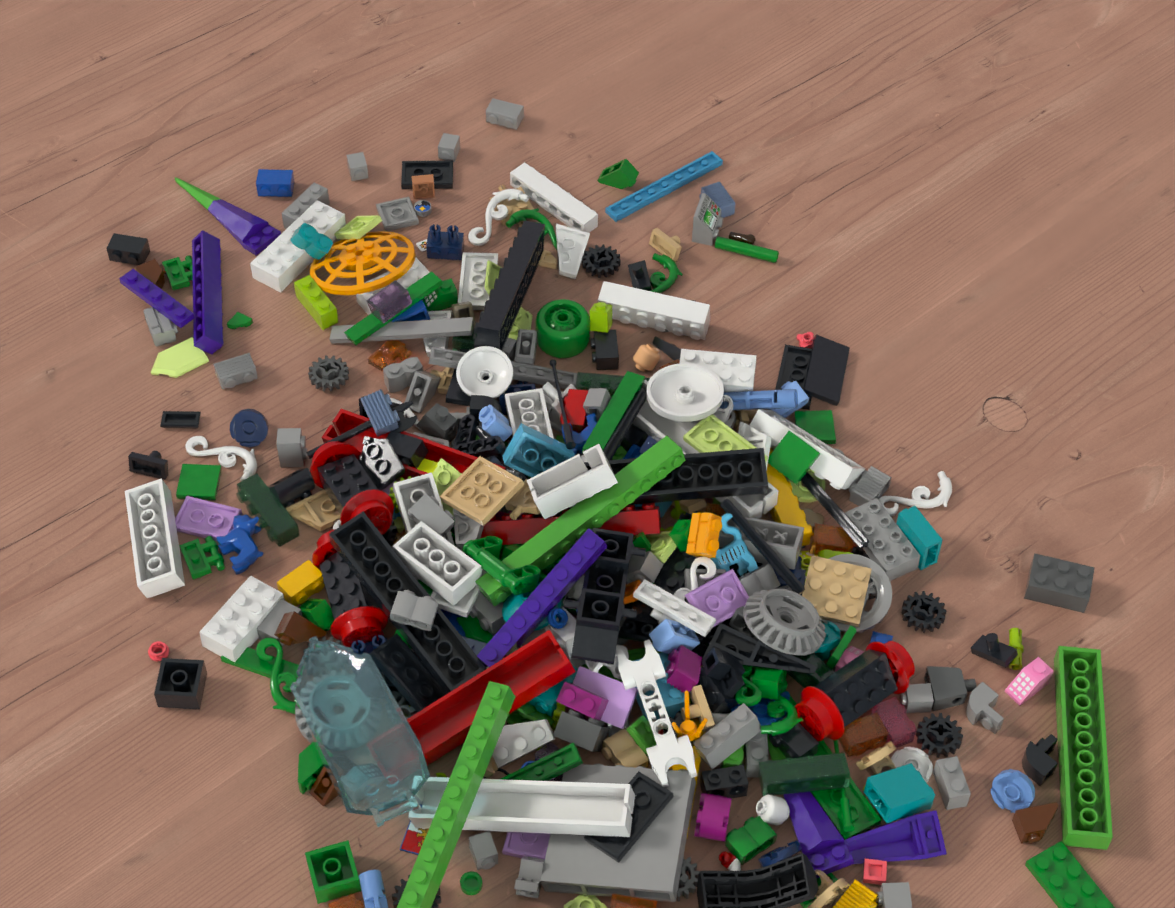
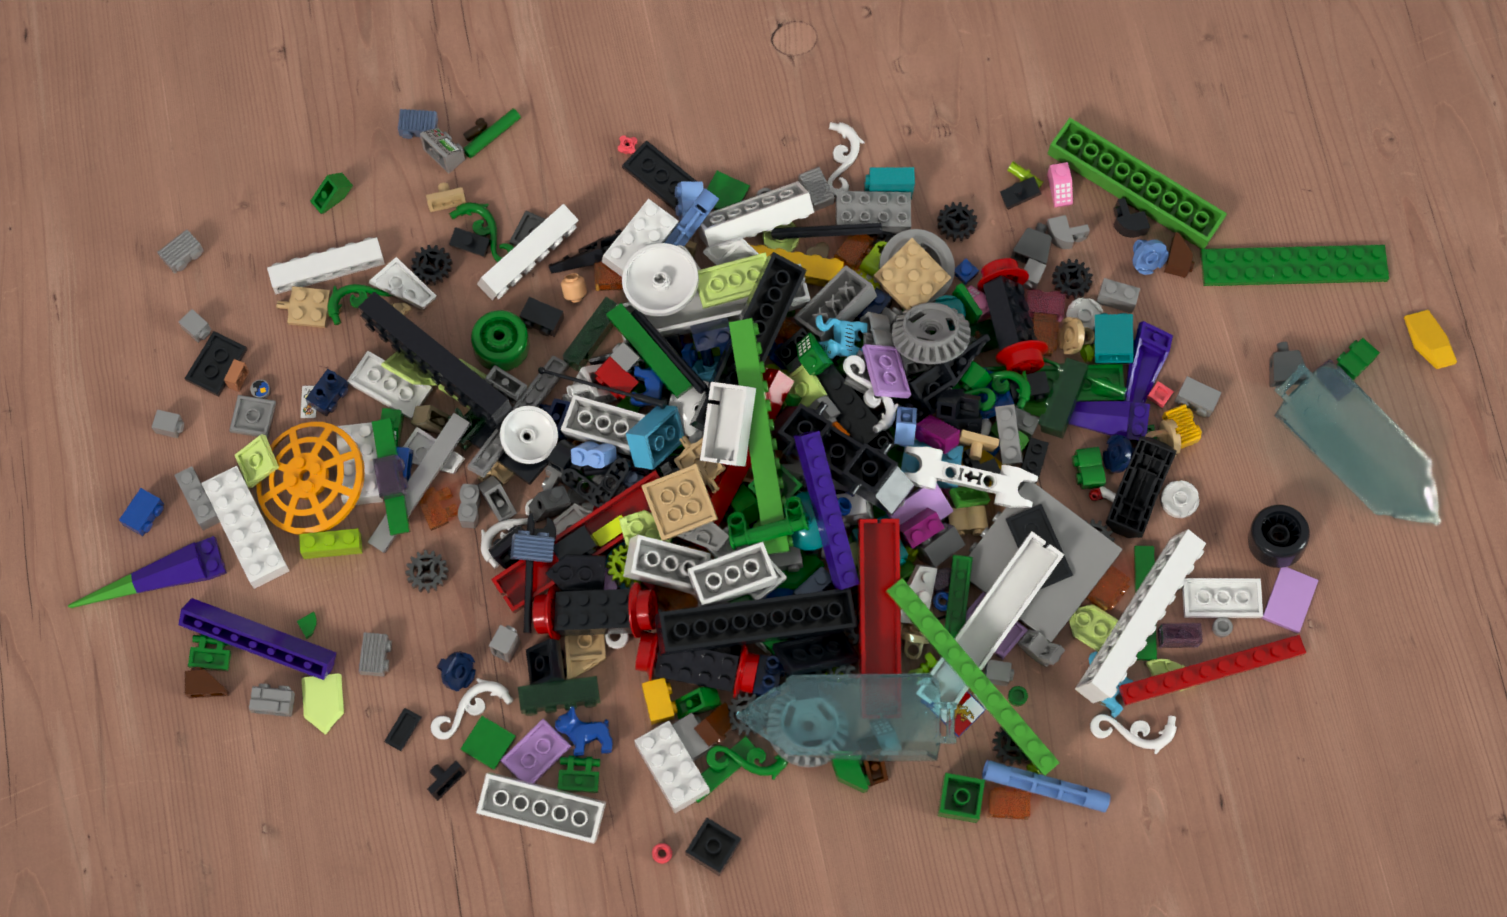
camera: 65 degrees left, 20 degrees up
(128, 249) = (149, 692): black brick -> none
(157, 298) = (243, 689): dark purple plate -> none
(311, 241) = (264, 512): teal brick -> none
(414, 610) = (777, 617): light grey brick -> none
(430, 513) = (681, 558): light grey brick -> none
(496, 215) = (298, 311): white plant -> none
(601, 317) = (513, 301): lime brick -> none
(663, 186) = (366, 159): dark azure tile -> none
(674, 608) = (883, 410): white tile -> none
(689, 727) = (992, 460): light orange plant -> none
(704, 535) = (831, 348): light orange brick -> none
(713, 817) = (1062, 484): magenta brick -> none
(763, 547) = (858, 308): black axle -> none
(773, 809) = (1076, 437): white head -> none
(793, 457) = (766, 231): green tile -> none
(826, 370) = (671, 149): black tile -> none
(1059, 583) = (986, 105): dark grey brick -> none

